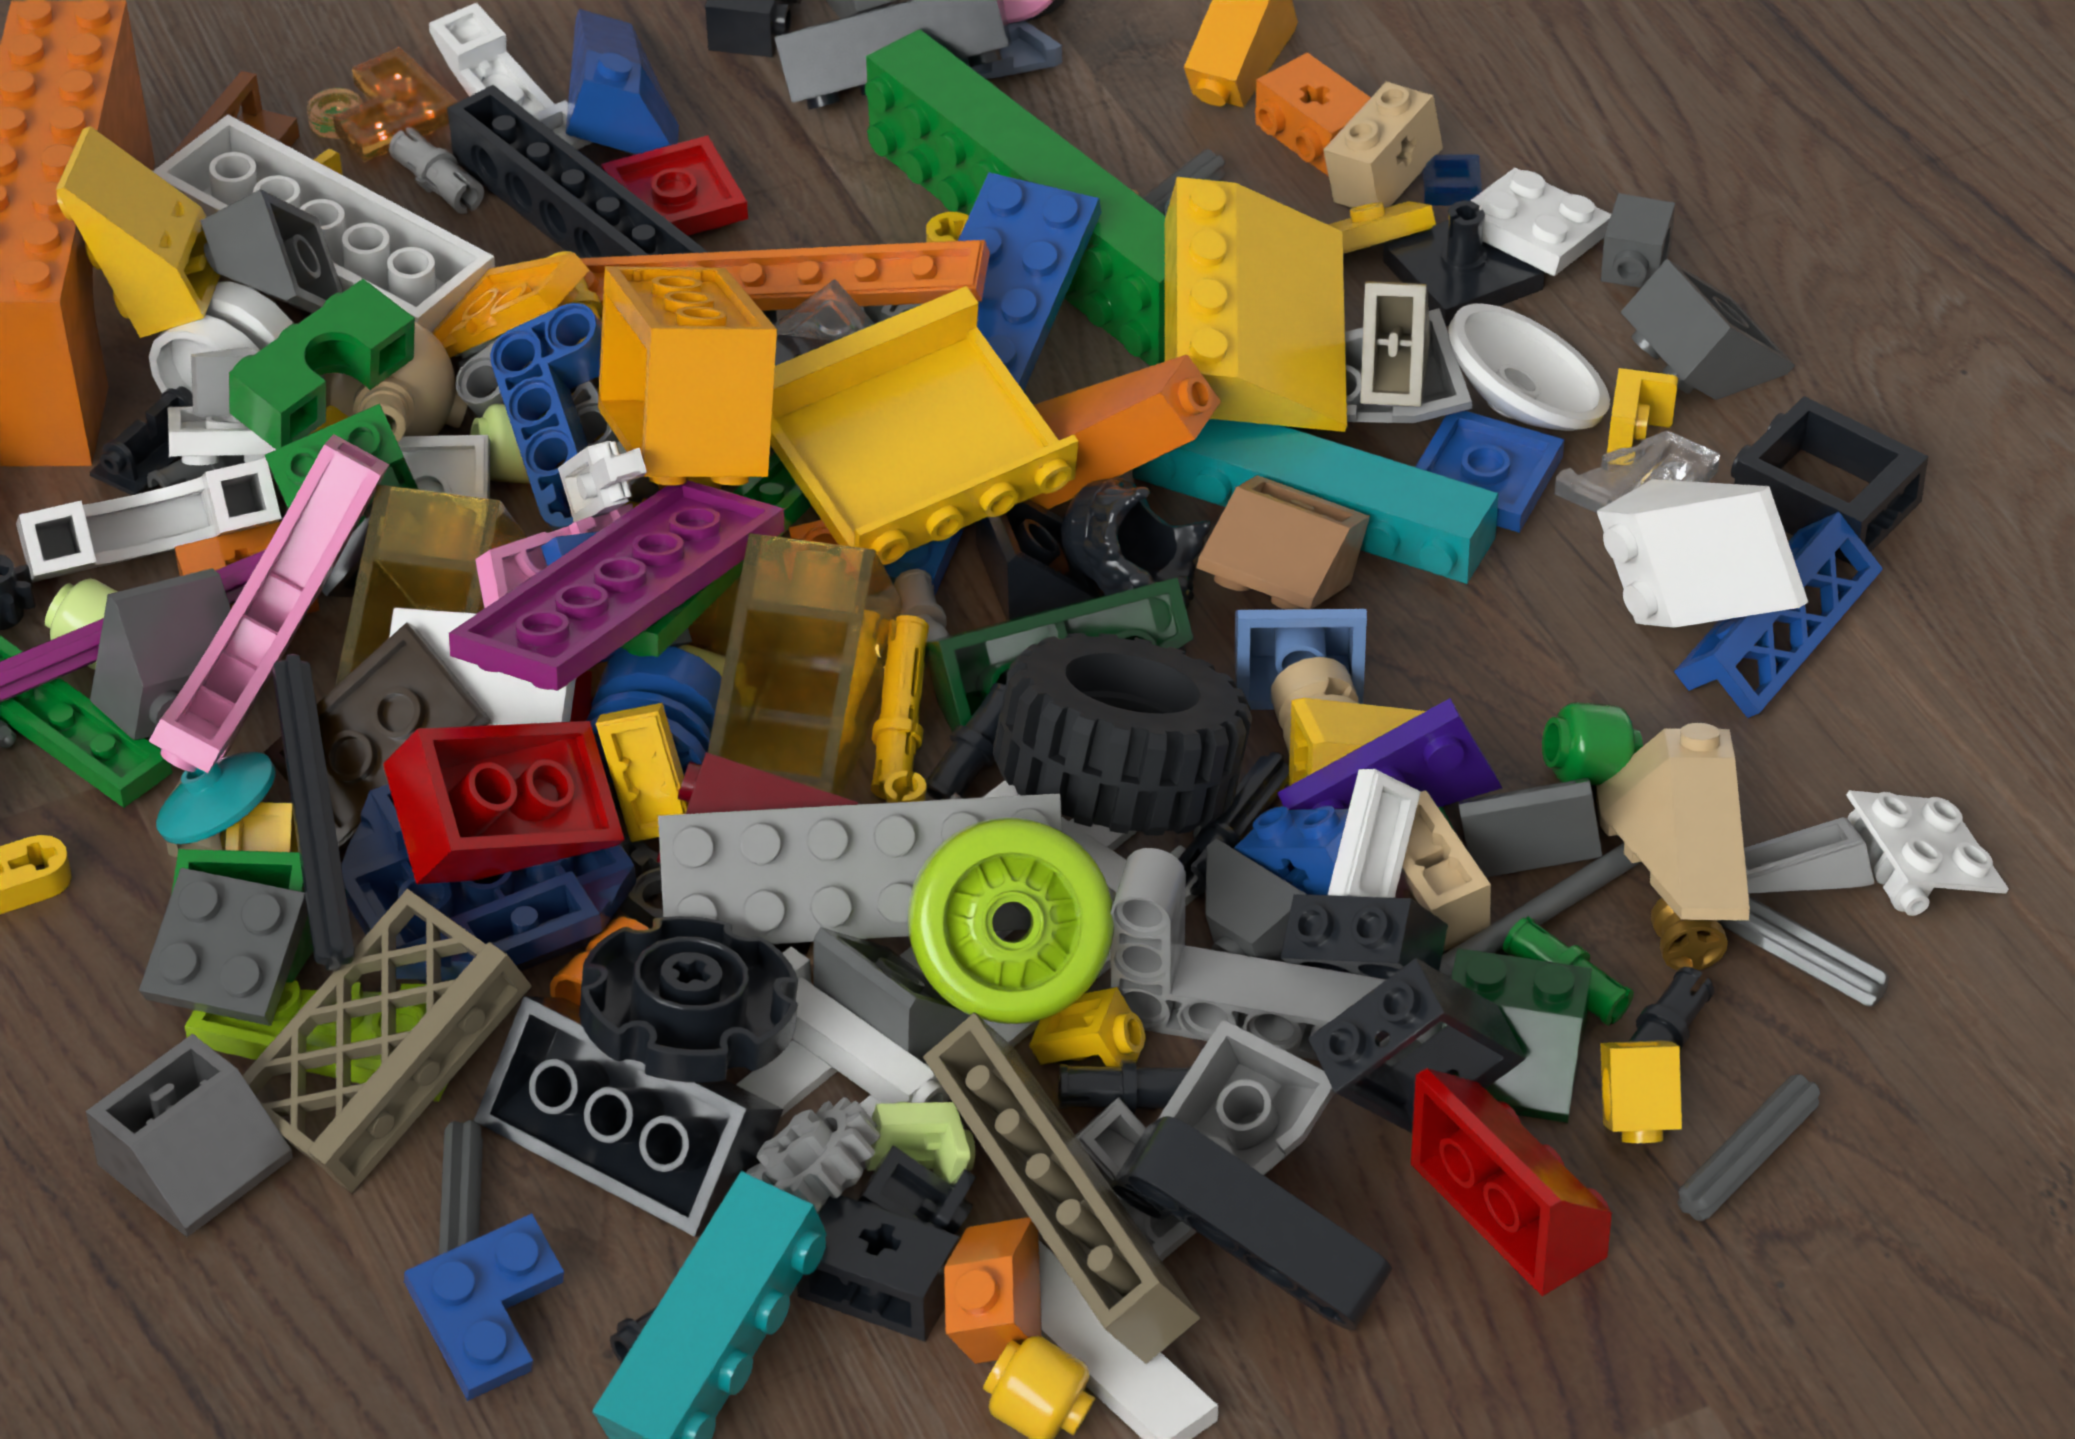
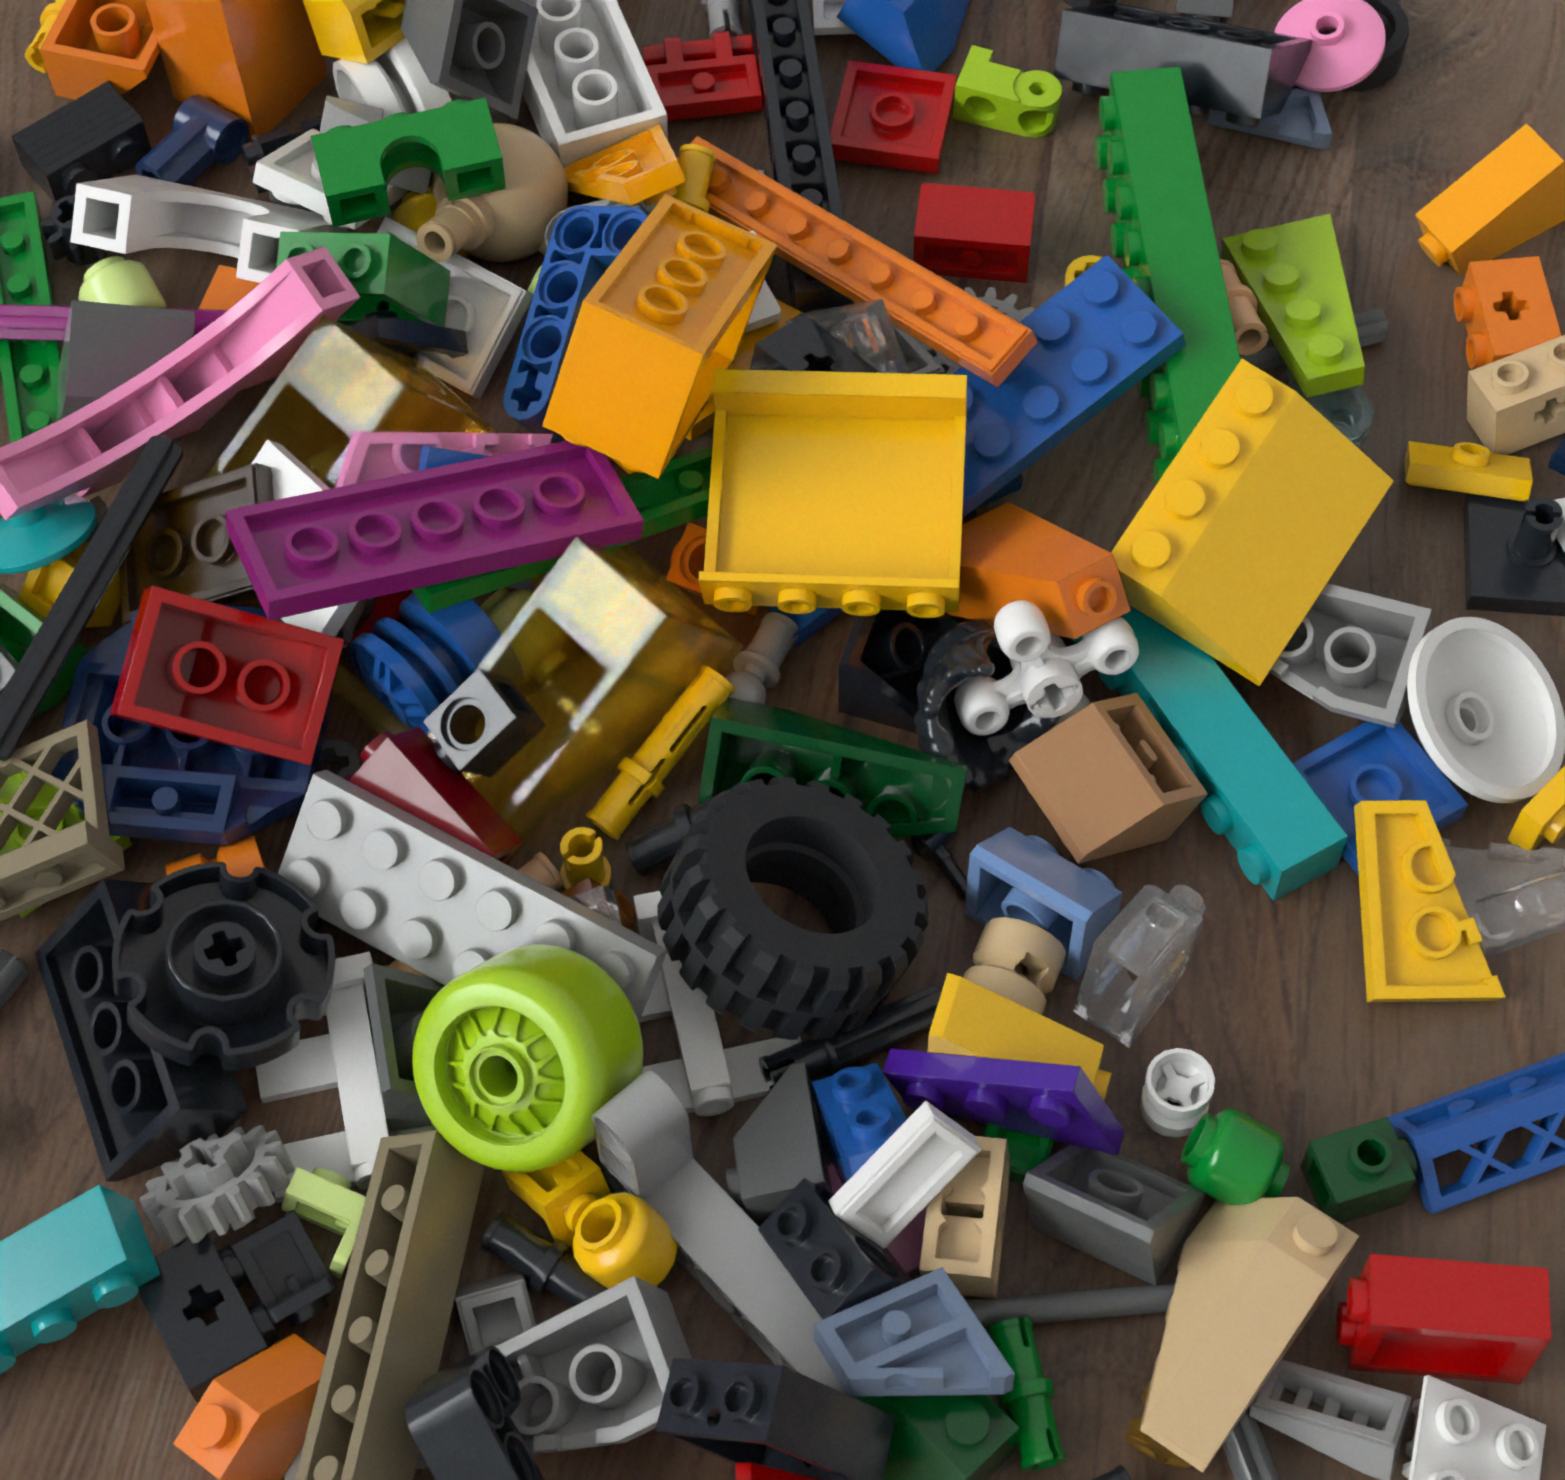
camera: 35 degrees right, 15 degrees up
(43, 475) = (199, 138): none -> dark blue piece
(493, 223) = (705, 75): none -> red plate
(600, 479) = (524, 402): white hinge -> none
(642, 767) = (369, 696): yellow plate -> none
(760, 692) = (508, 724): none -> black brick
(761, 134) = (1006, 97): none -> lime leg
(828, 220) = (974, 232): none -> red panel
(1141, 155) = (1302, 300): none -> lime wing
(1174, 1024) = (623, 1239): none -> yellow head
(1179, 488) = (1043, 669): none -> white gear
(1394, 343) = (1350, 632): dark tan slope -> none
(1412, 636) = (1153, 941): none -> clear torso
(1484, 935) = (913, 1344): none -> sand blue wing
(1511, 726) = (1183, 1079): none -> white wheel
(1561, 507) = (1411, 913): none -> yellow wing
(1685, 695) = (1359, 1170): none -> dark green brick
(1700, 552) = (1468, 1024): white slope -> none
(1866, 704) = (1445, 1318): none -> red window

